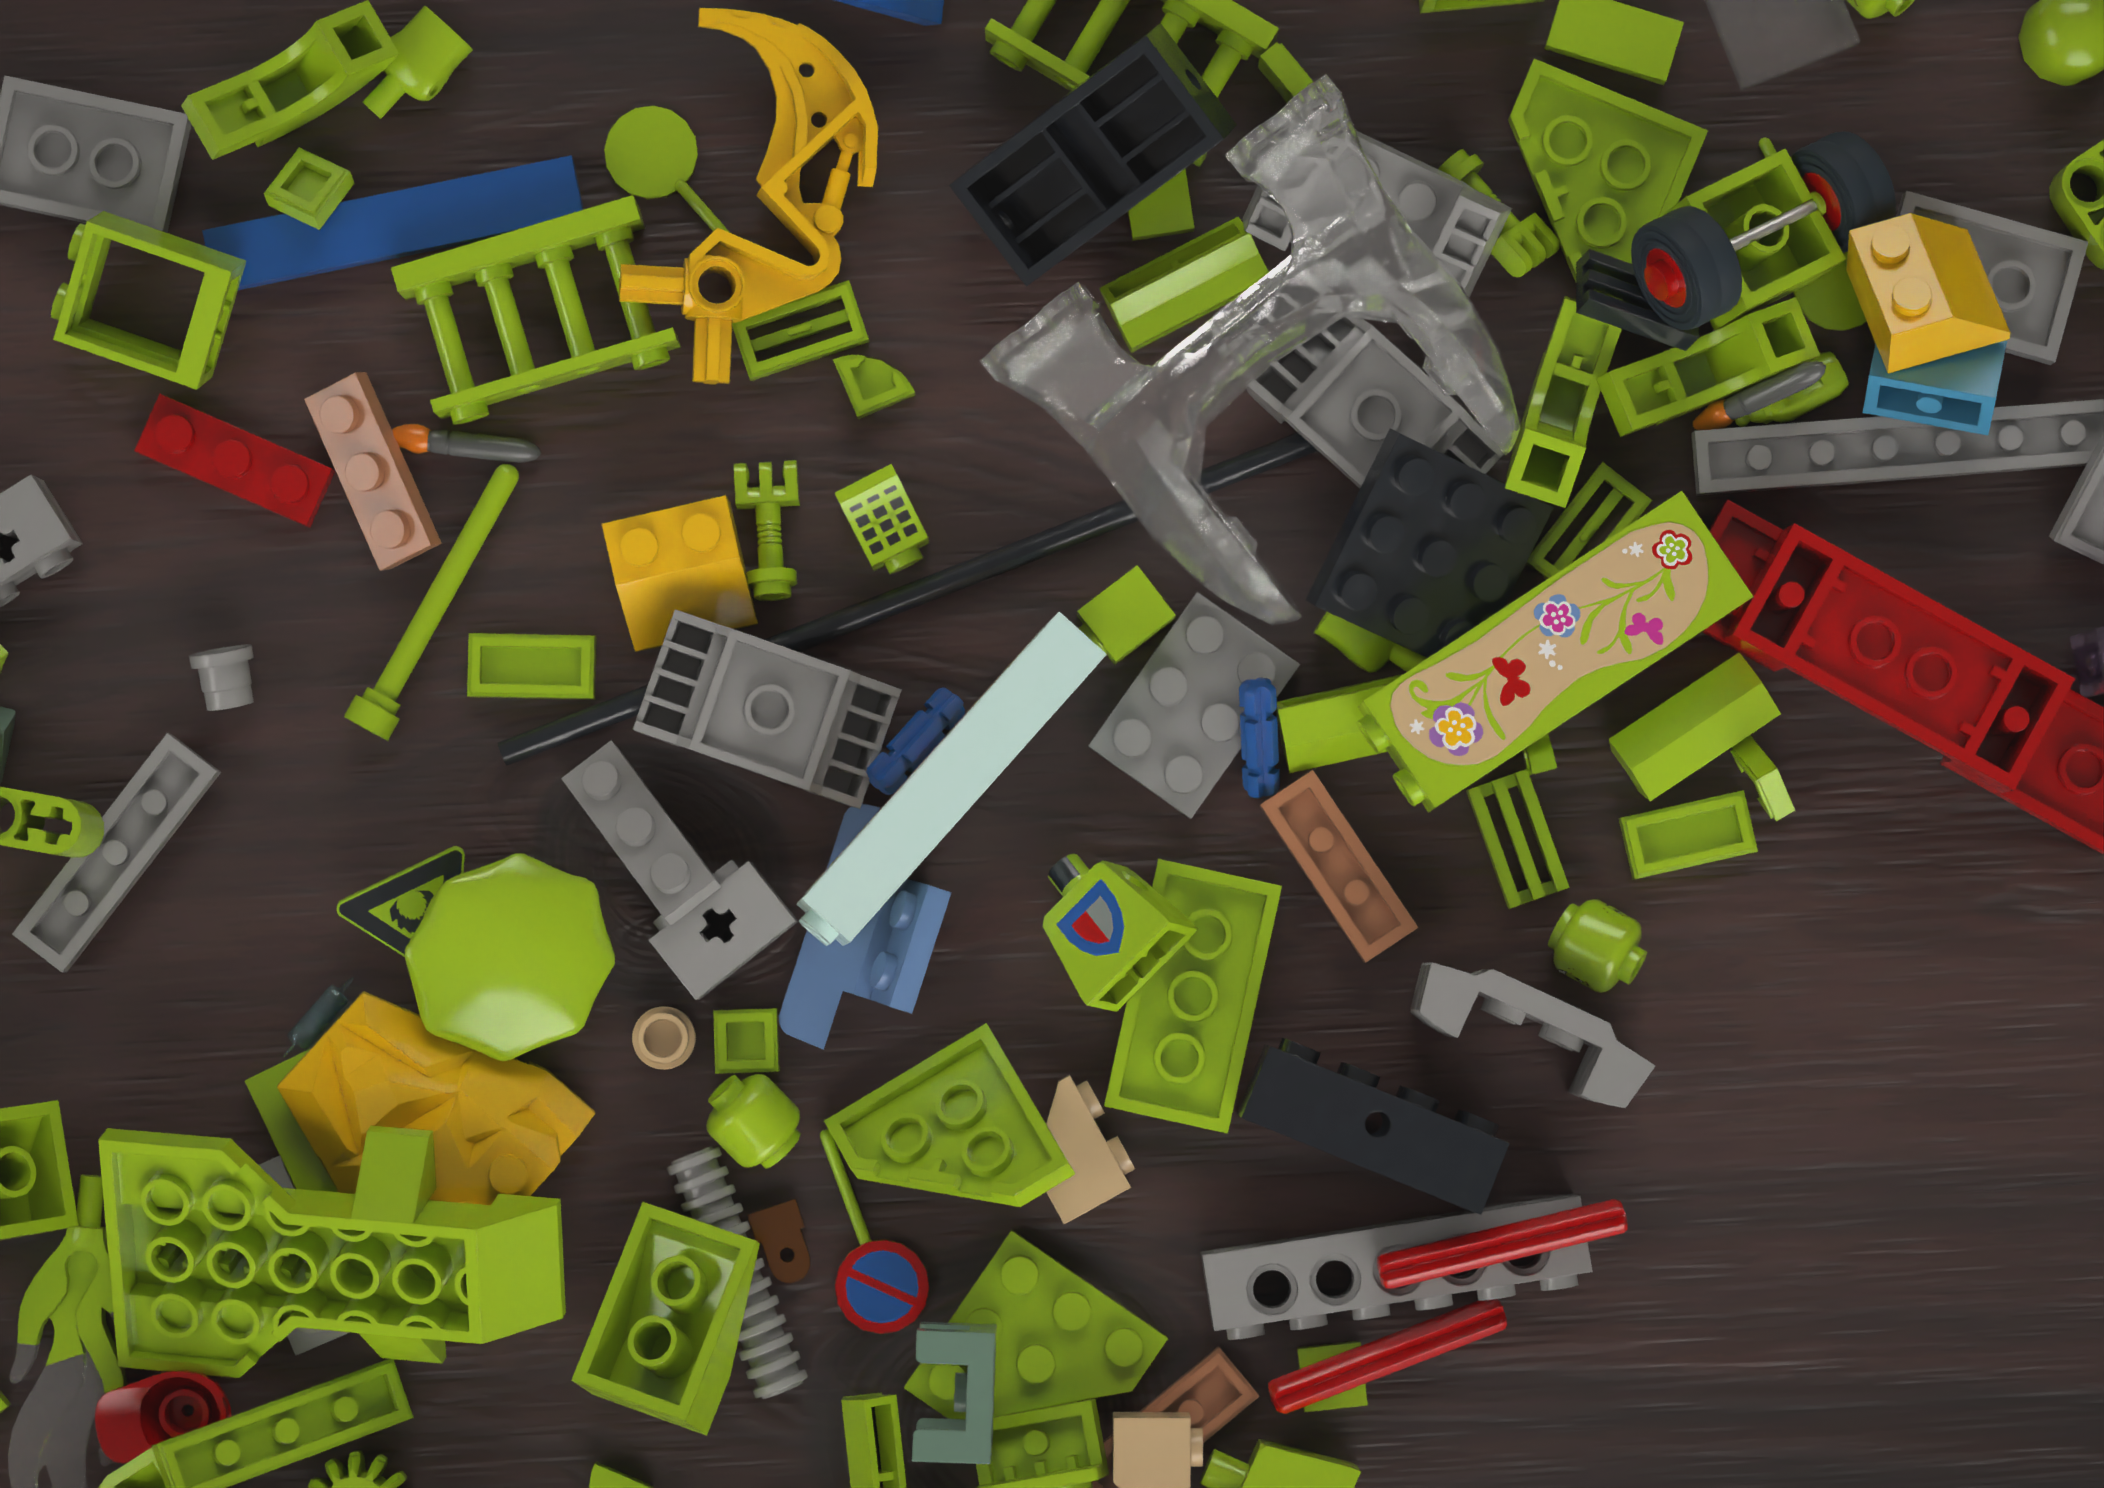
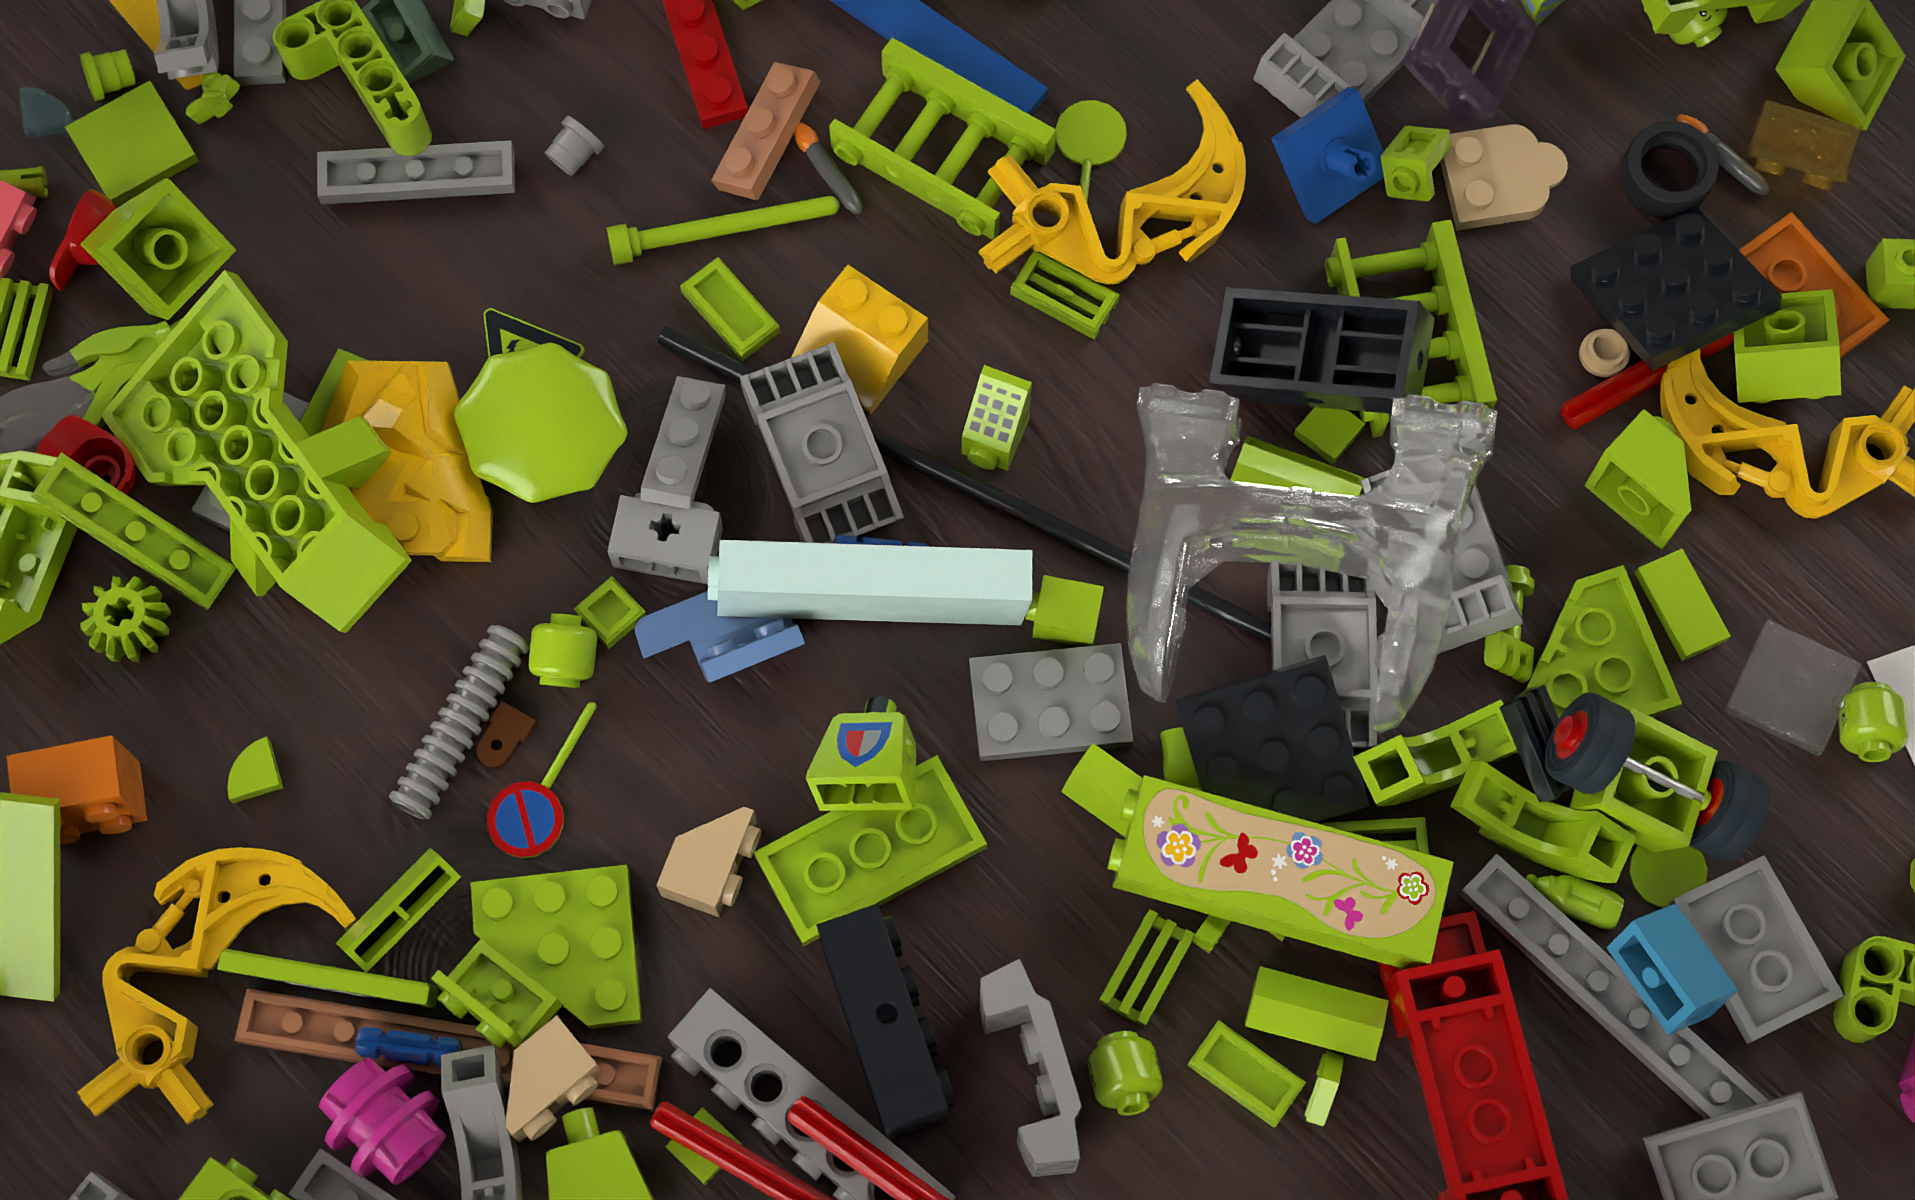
camera: 50 degrees right, 15 degrees down
(318, 1017) = (427, 356): clear light blue piece -> none
(664, 1037) = (570, 562): tan plate -> none
(670, 1319) = (392, 700): lime slope -> none
(772, 579) = (903, 394): lime hinge -> none
(872, 383) = (1070, 359): lime tile -> none
(954, 1128) = (660, 770): lime plate -> none
(968, 1438) = (499, 914): sand green panel -> none
(1259, 737) = (1065, 751): blue axle -> none
(1338, 866) = (1030, 870): nougat plate -> none
(1758, 396) = (1558, 873): dark grey piece -> none
(1922, 290) = (1717, 908): yellow slope -> none

